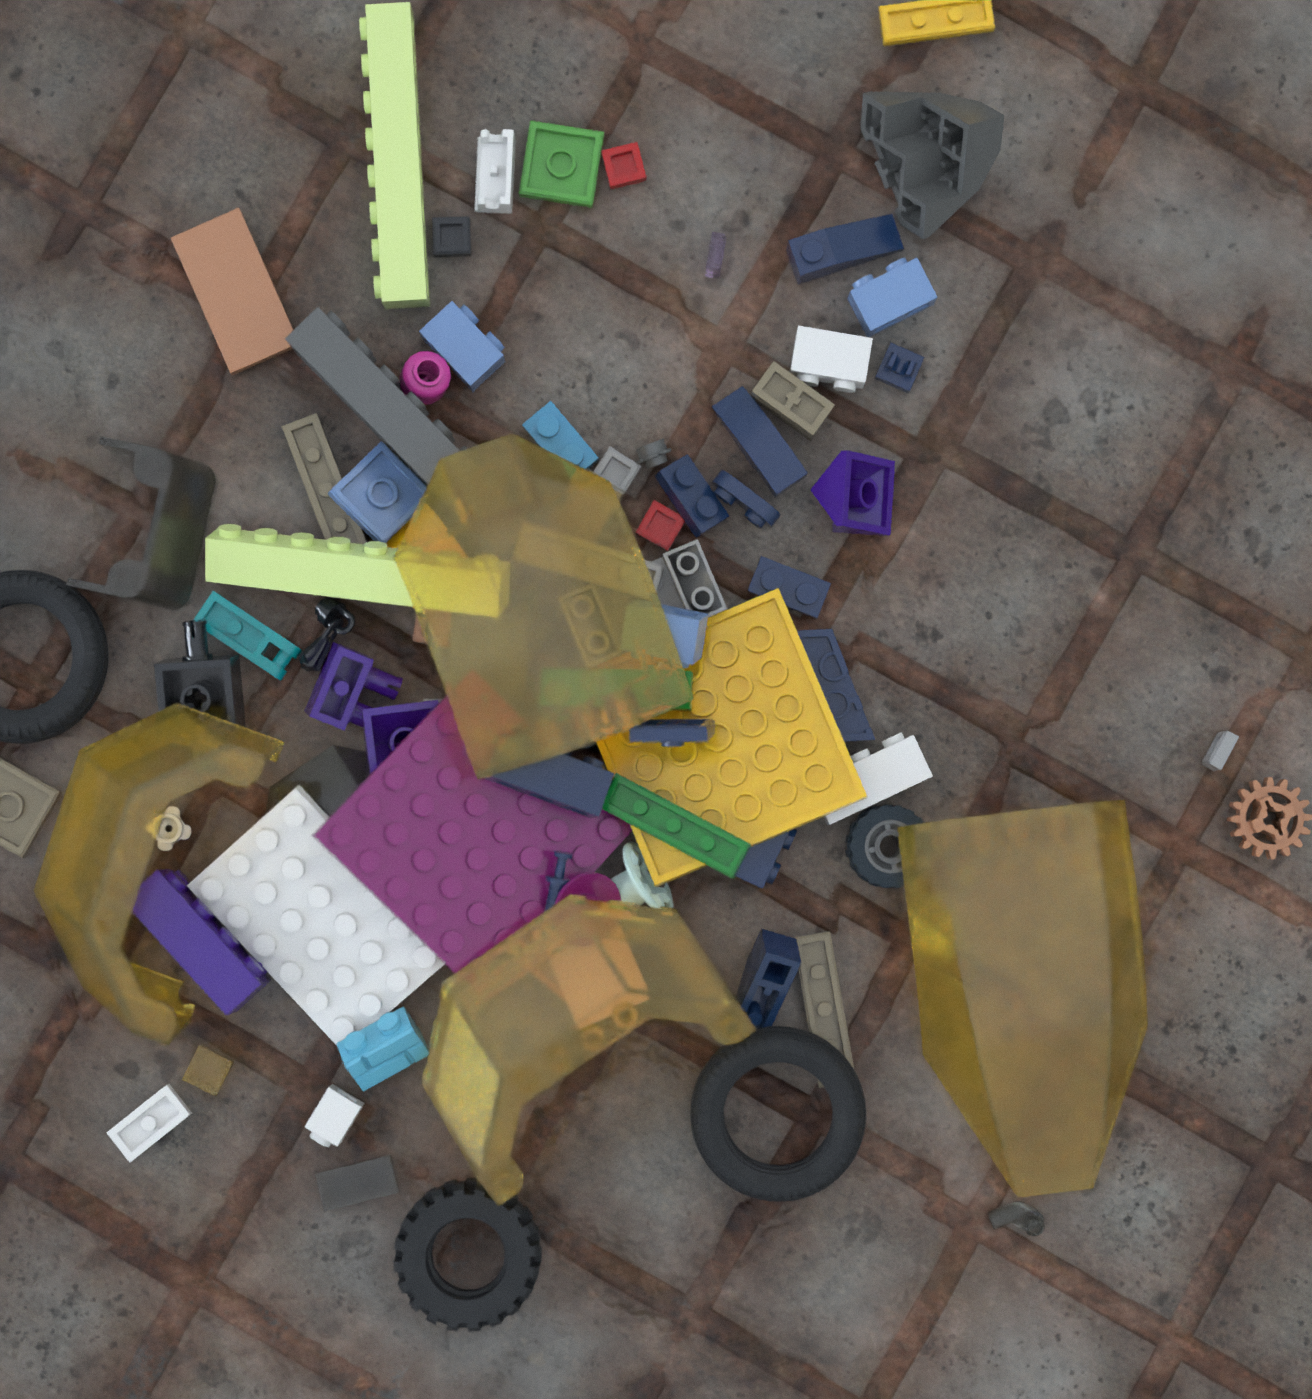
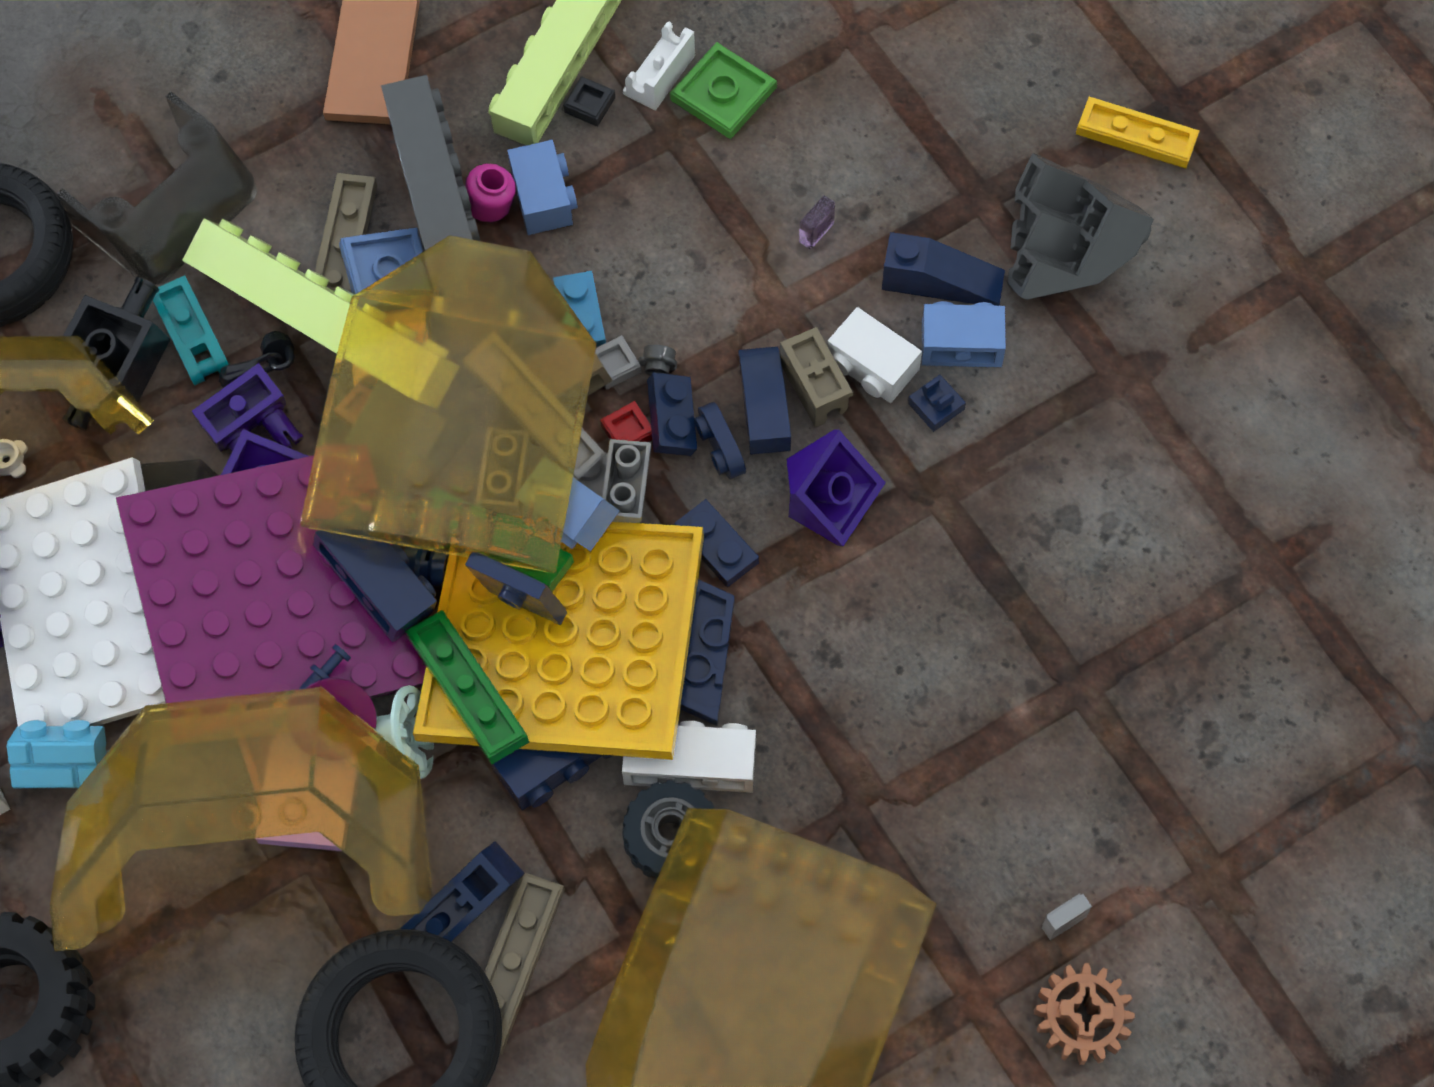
camera: 35 degrees right, 20 degrees down
(623, 165) = (778, 116): red tile -> none

